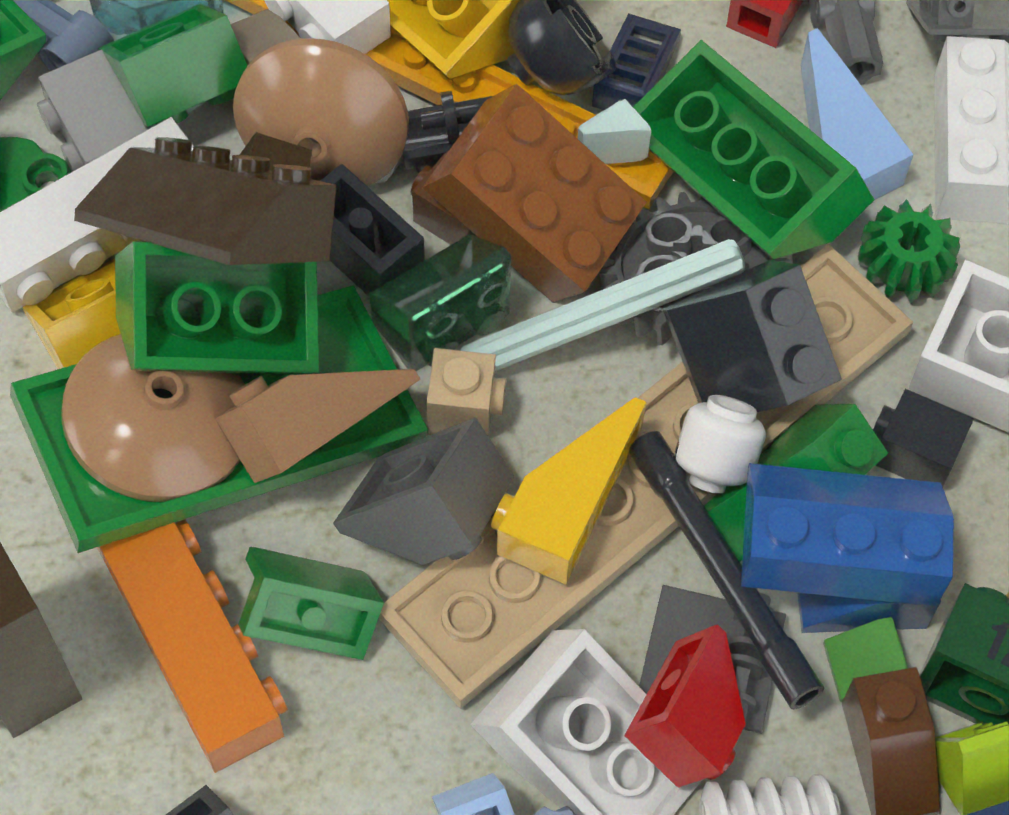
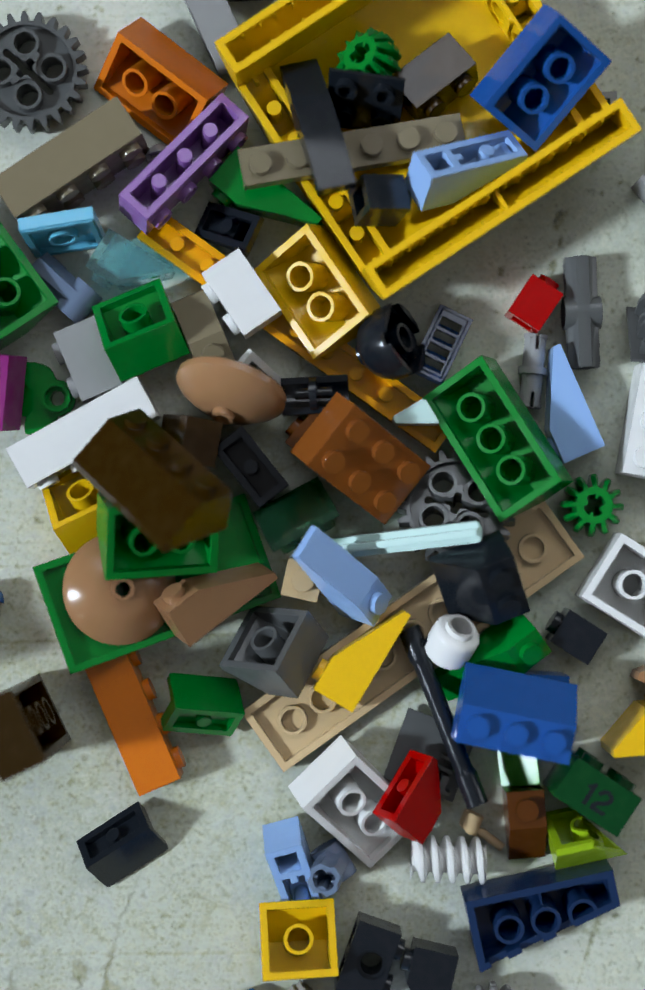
camera: 10 degrees right, 25 degrees up
(527, 364) = (342, 578): none -> light blue slope
(781, 73) = (532, 369): none -> light grey pin
(801, 760) = (471, 823): none -> tan hand

